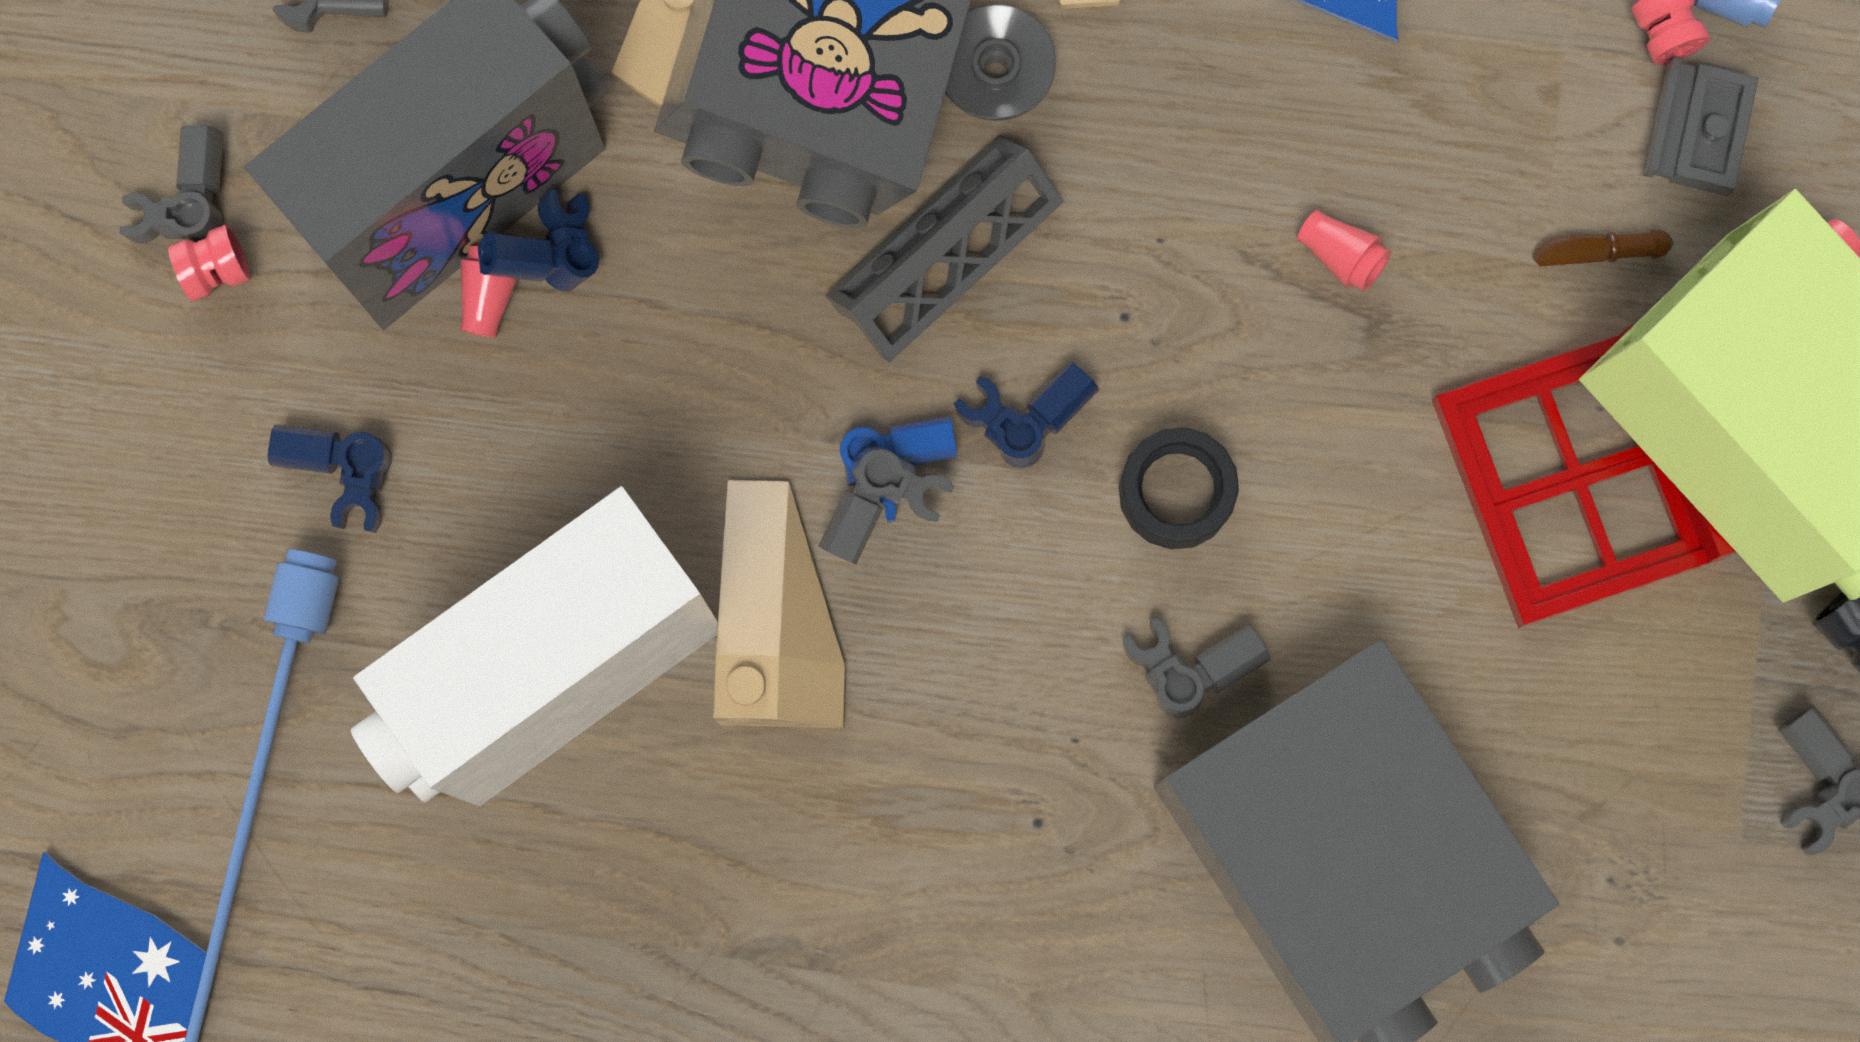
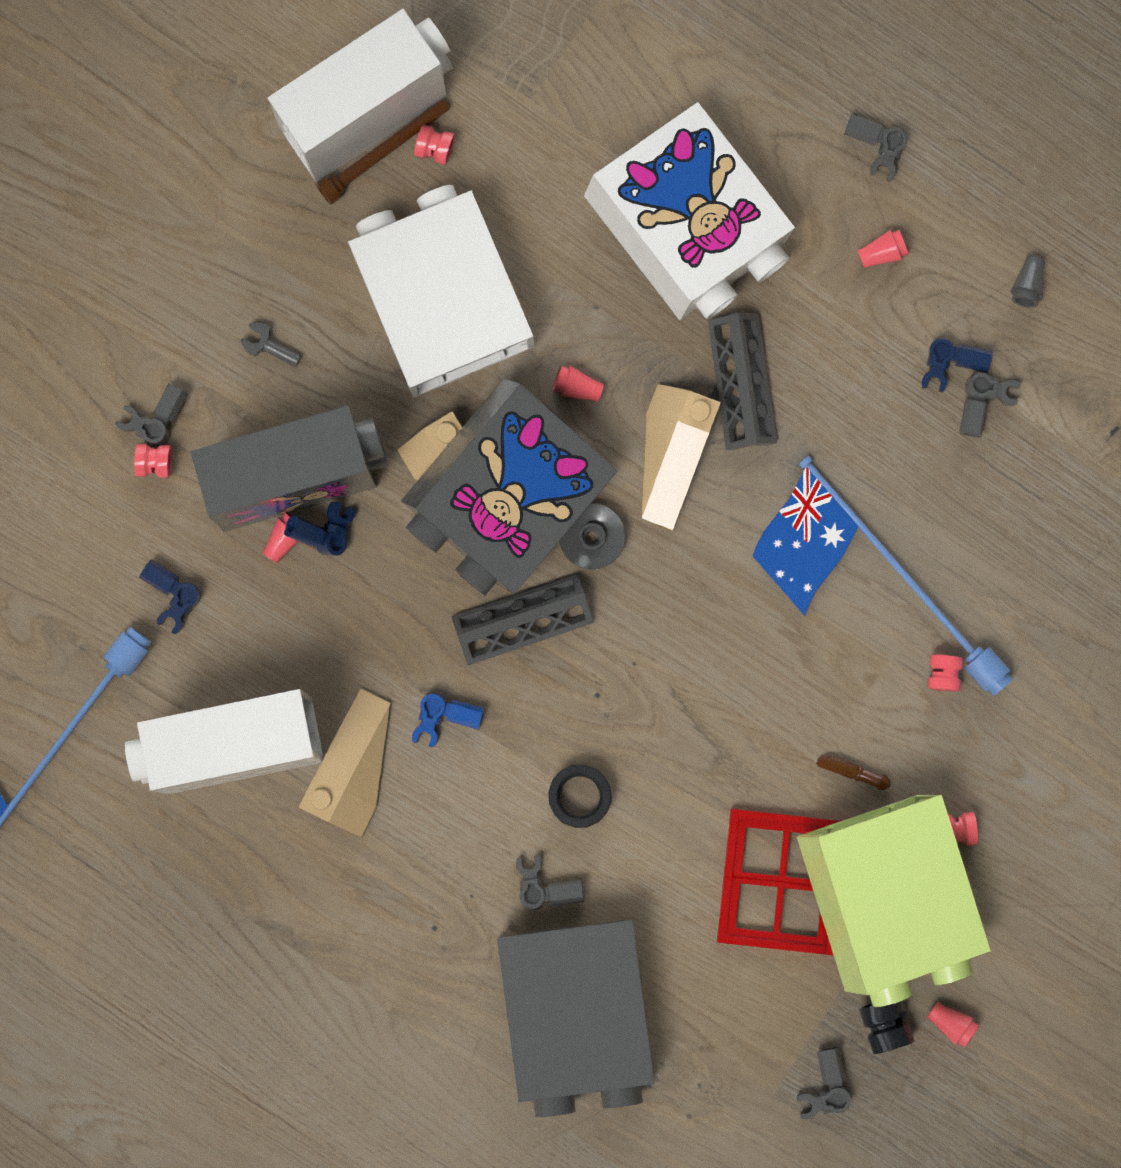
camera: 30 degrees right, 5 degrees up
(876, 475) = (432, 724): dark grey bar -> none
(1020, 435) = (515, 734): dark blue bar -> none
(1346, 251) = (721, 713): coral cone -> none
(1701, 126) = (934, 733): dark grey plate -> none

